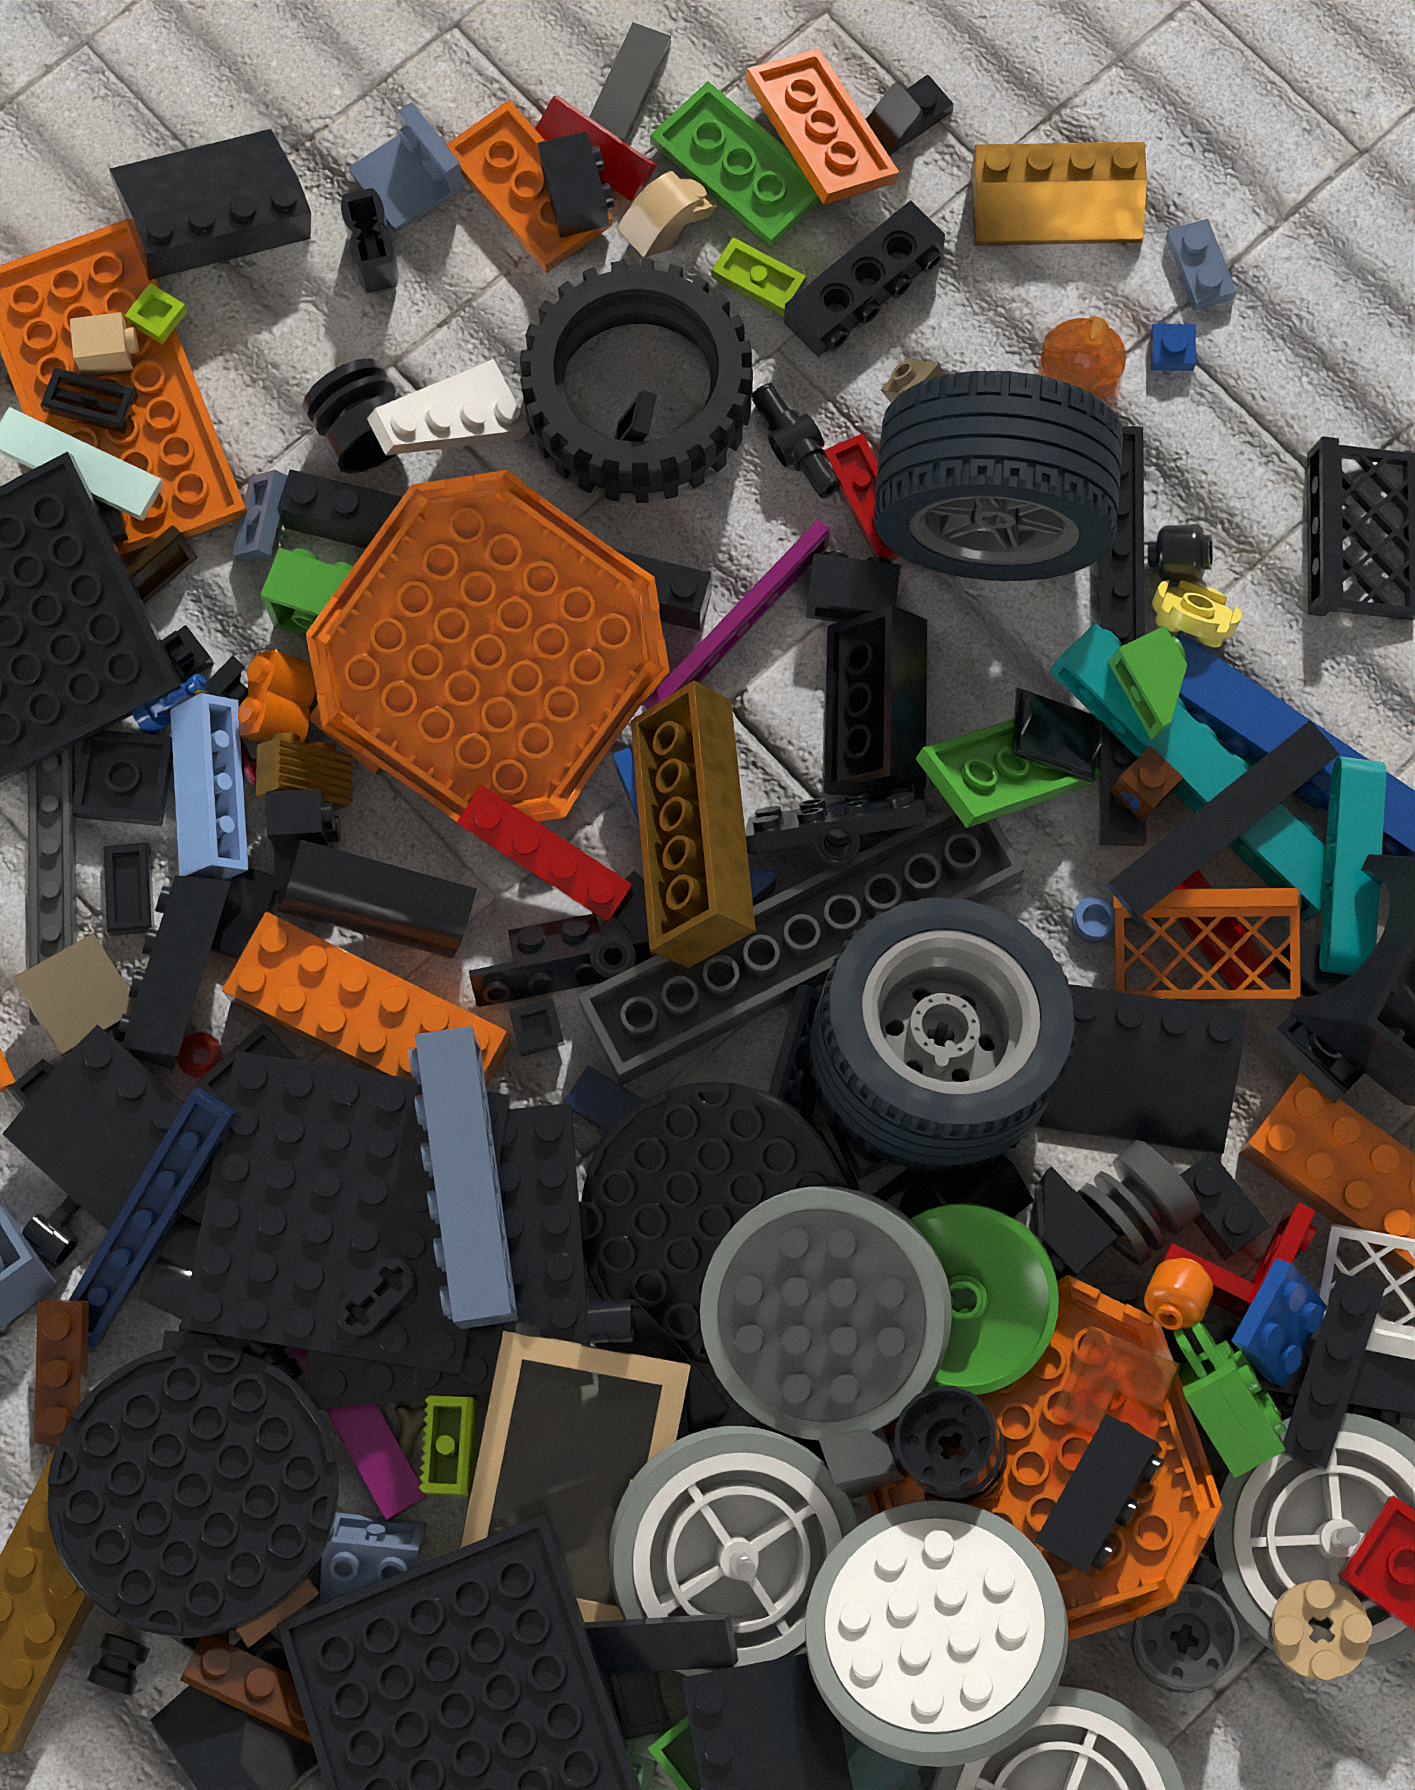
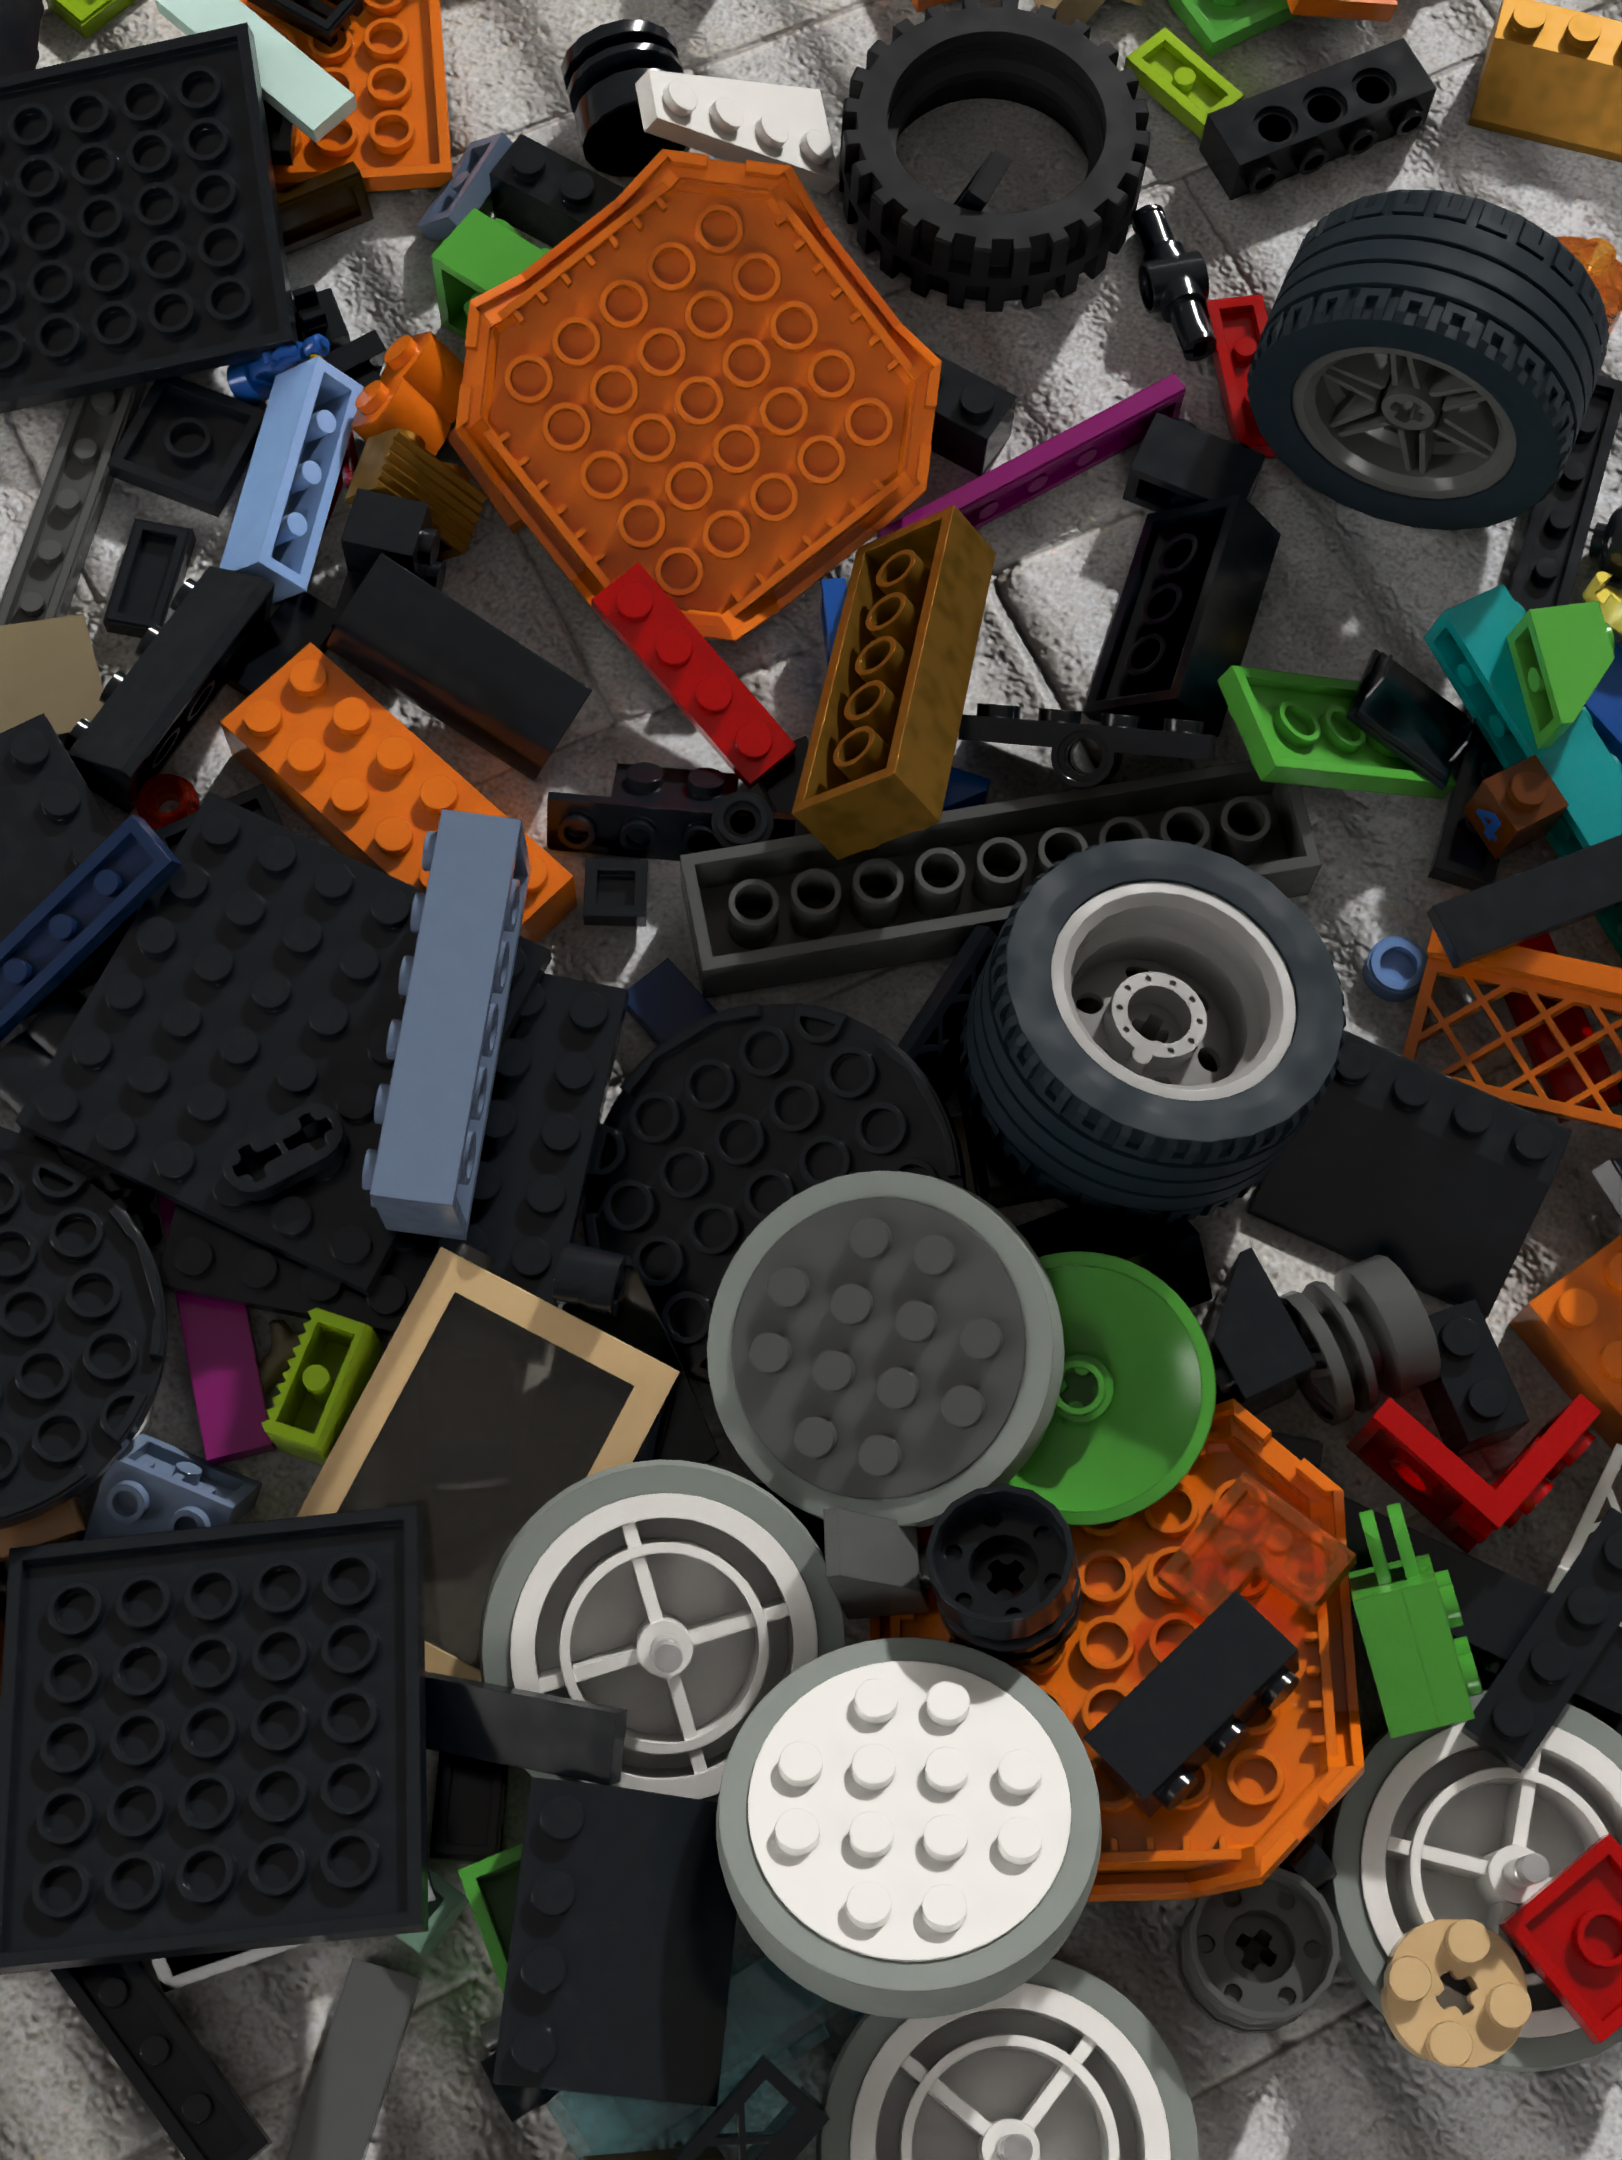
camera: 10 degrees right, 5 degrees down
(1178, 1293) = (1380, 1463): orange head -> none
(1280, 1323) = (1510, 1548): blue plate -> none

